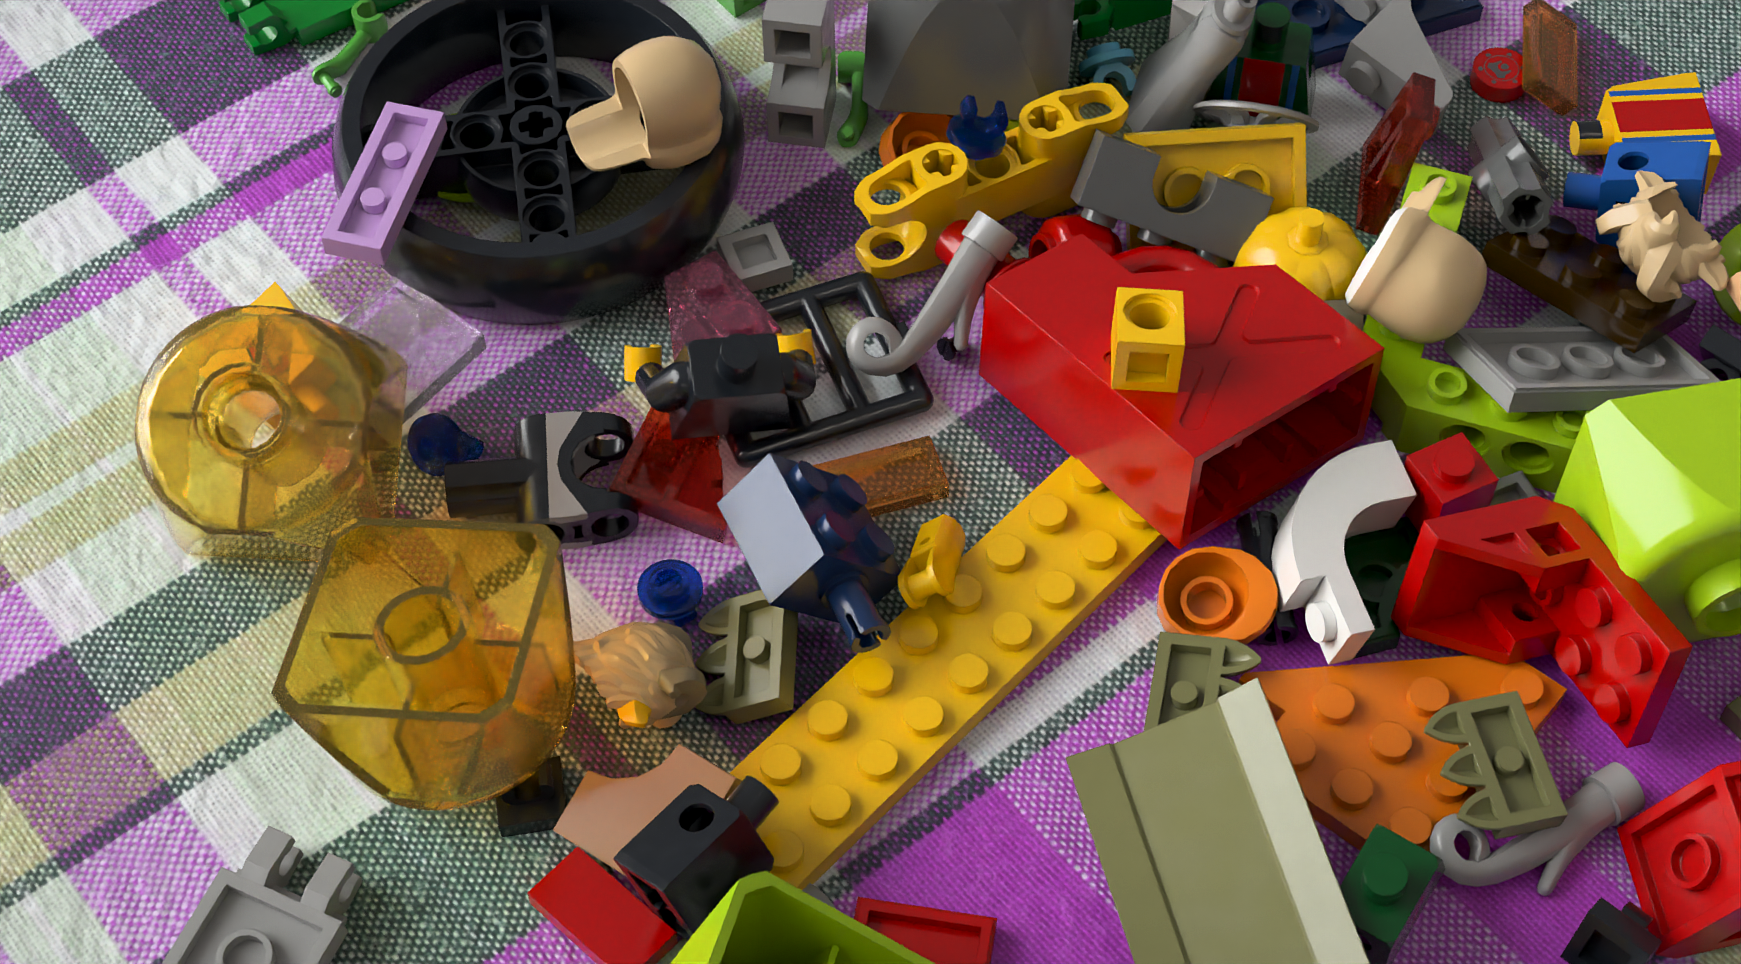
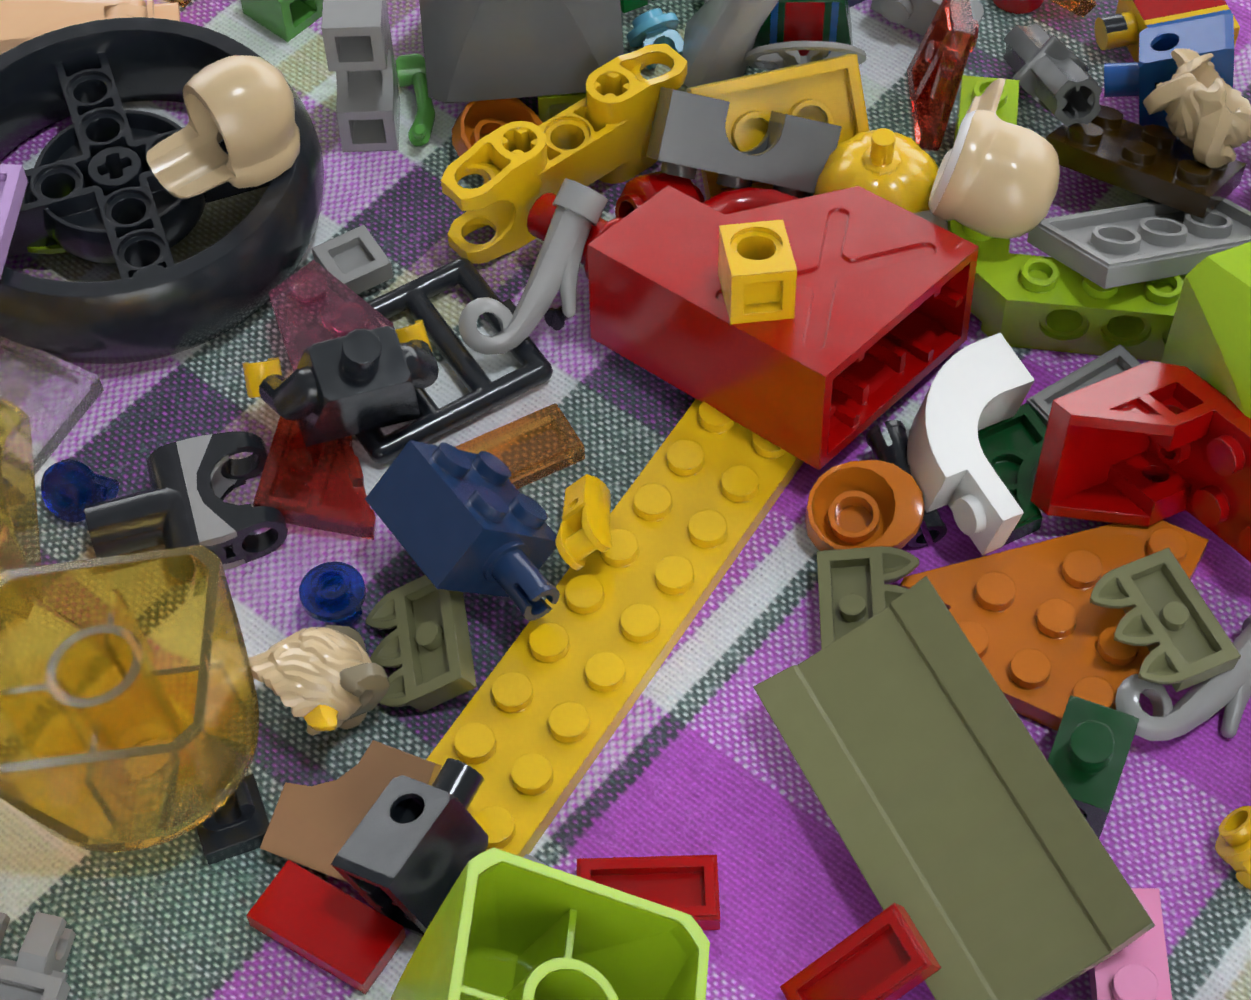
camera: 10 degrees left, 0 degrees up
(978, 135) = (549, 110): clear blue plate -> none
(1448, 480) = (1061, 362): red brick -> none

